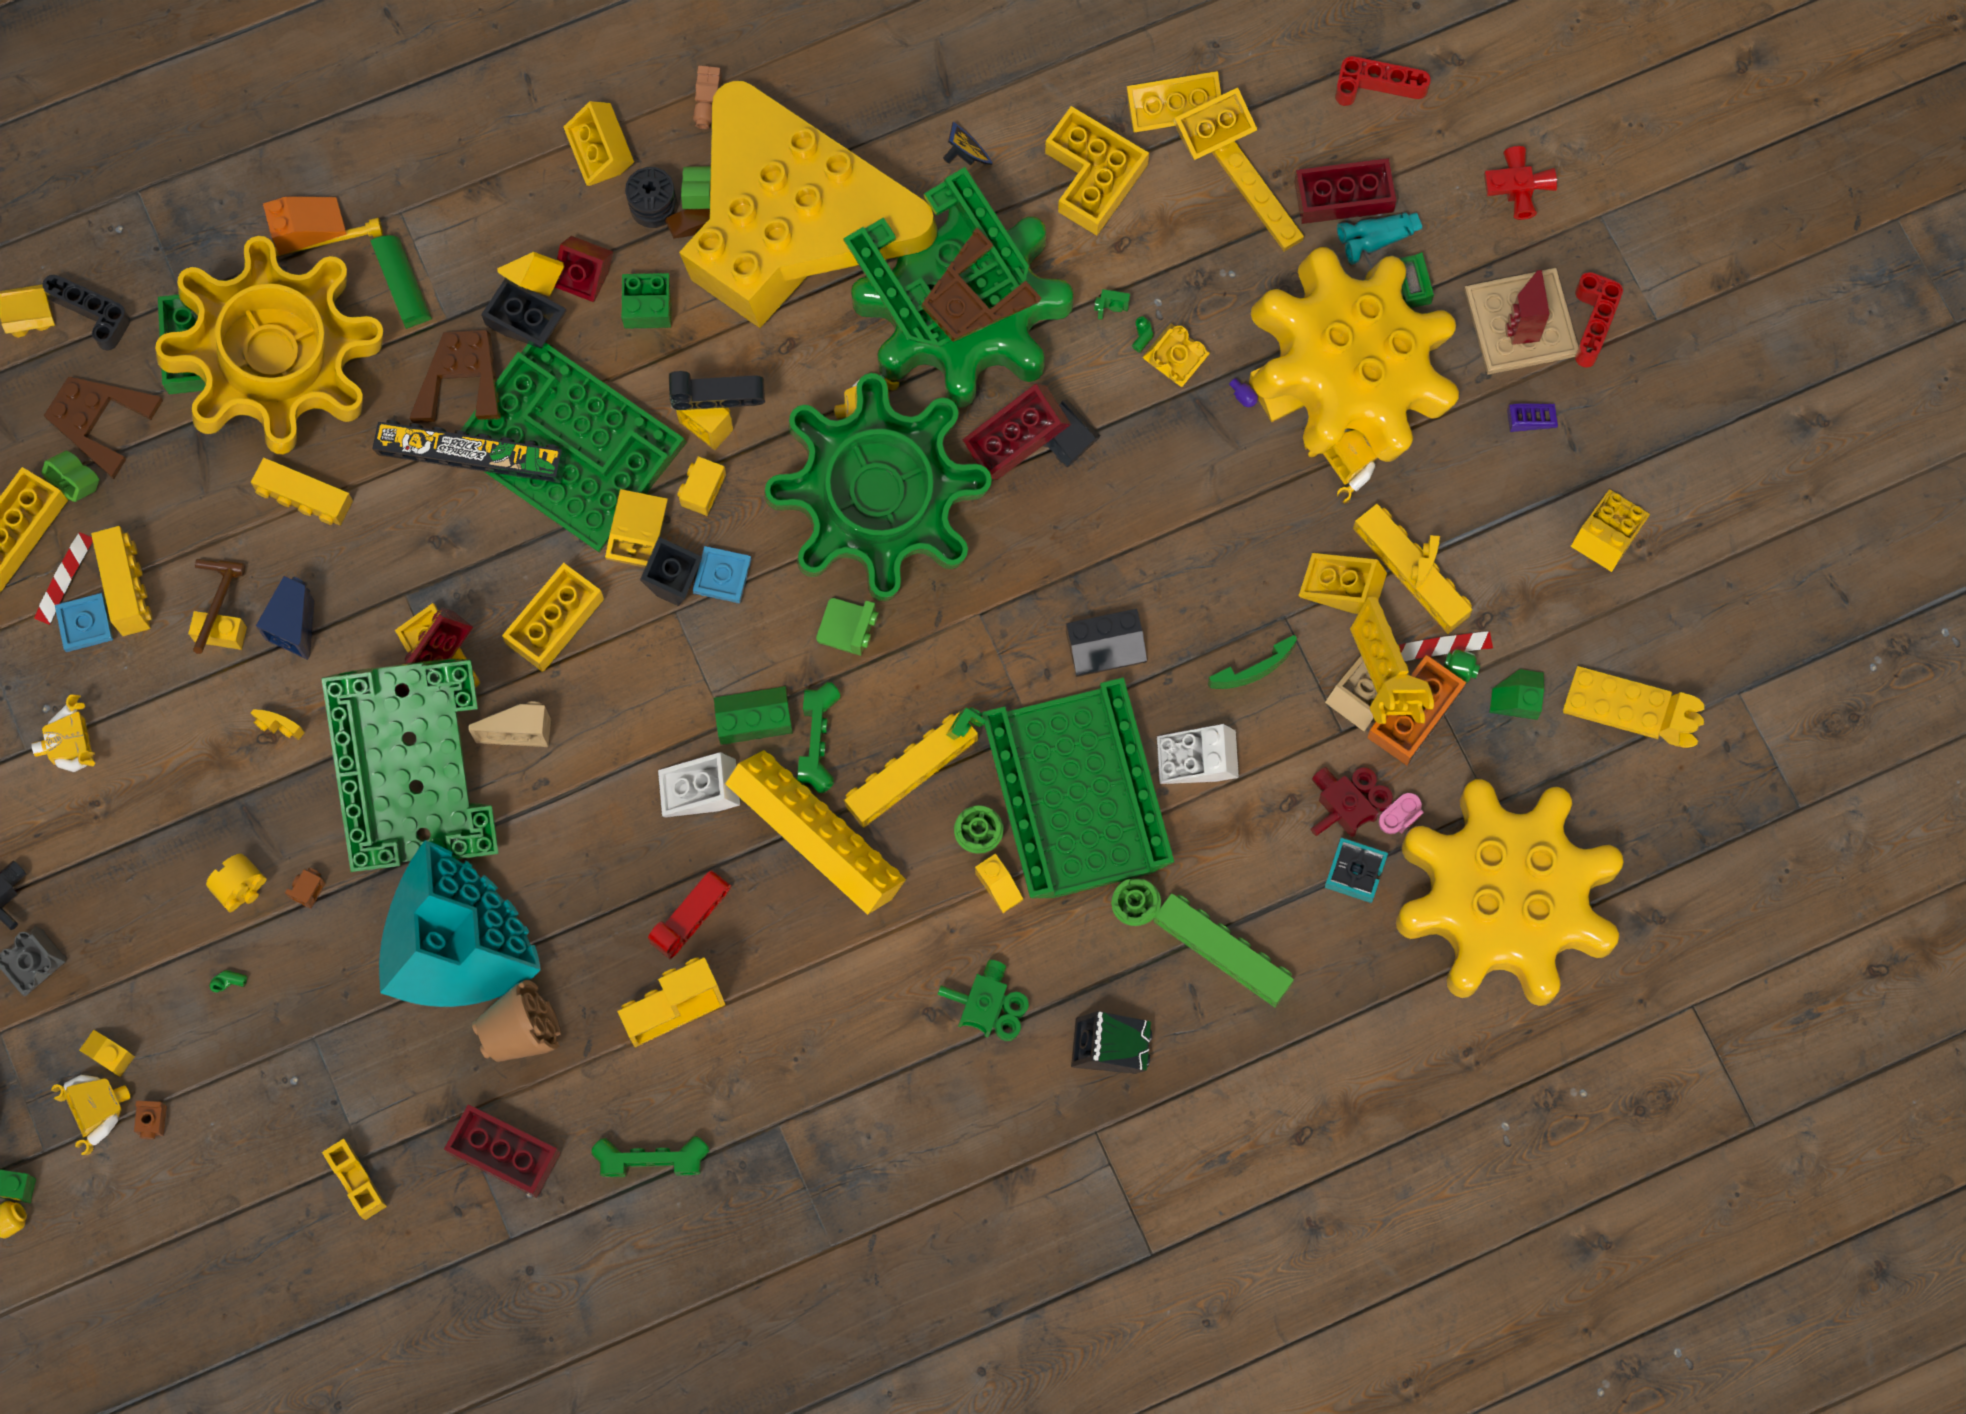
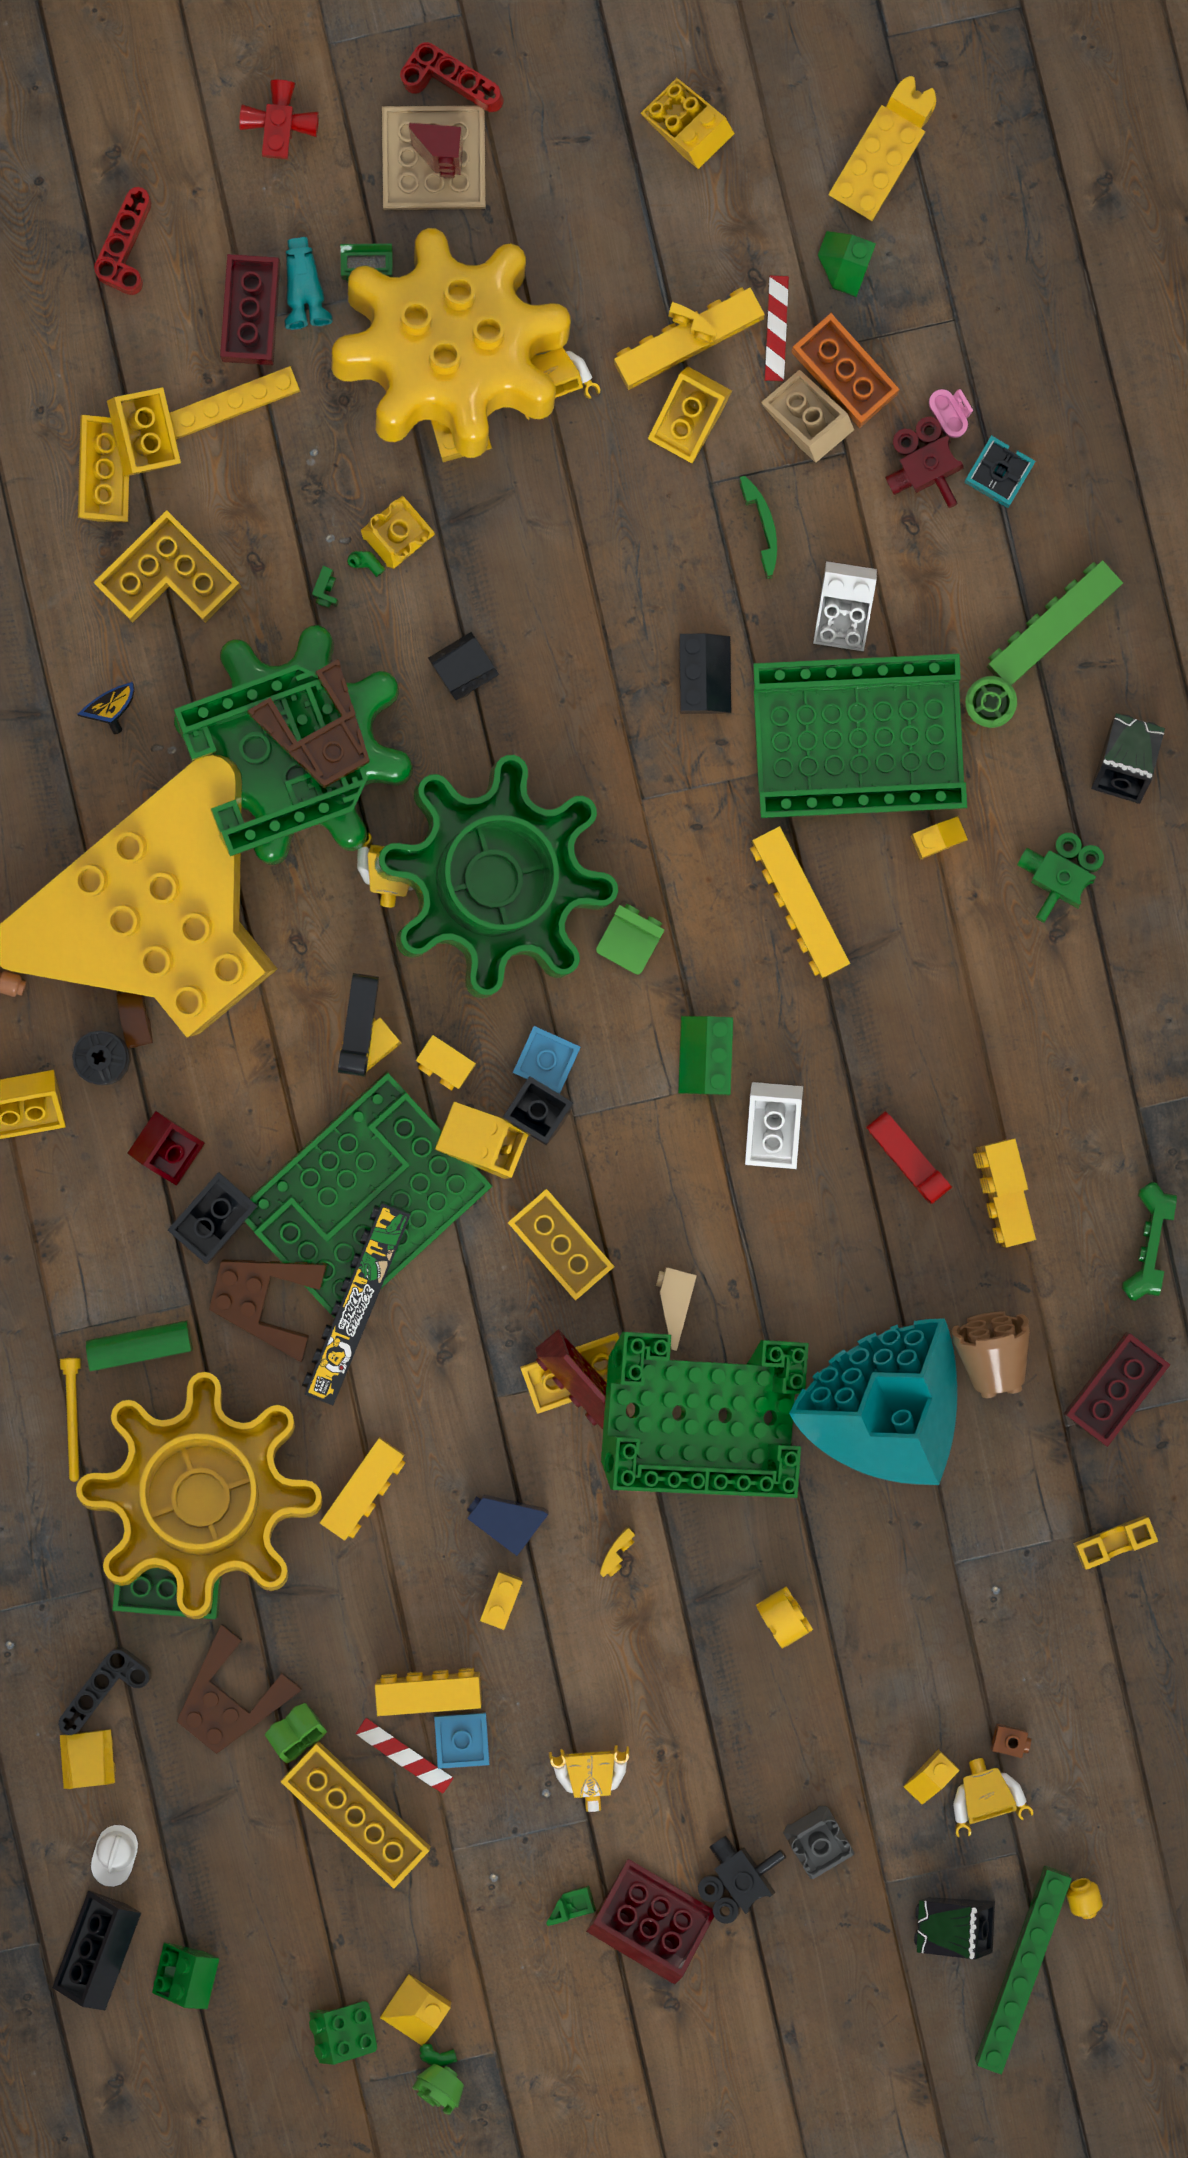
camera: 85 degrees left, 15 degrees up
(226, 979) = (878, 1645): green arm -> none
(228, 571) = (435, 1578): reddish brown bar -> none
(303, 221) = (49, 1440): orange slope -> none
(306, 887) = (799, 1547): dark orange brick -> none
(533, 272) = (172, 1200): yellow slope -> none
(646, 301) = (219, 1084): green slope -> none
(696, 187) = (99, 1006): bright green brick -> none
(815, 705) = (779, 1006): green plate -> none
(815, 831) = (852, 1013): yellow brick -> none
(961, 725) = (769, 840): green bracket -> none
(978, 829) = (882, 846): bright green cone -> none
(1017, 431) = (460, 718): dark red brick -> none
(1244, 393) = (456, 469): dark purple cylinder -> none
(1382, 657) = (802, 389): yellow hinge -> none
(1462, 664) = (804, 313): green head -> none
(1509, 892) = (1058, 322): yellow brick -> none
(1524, 425) = (541, 193): dark purple slope -> none

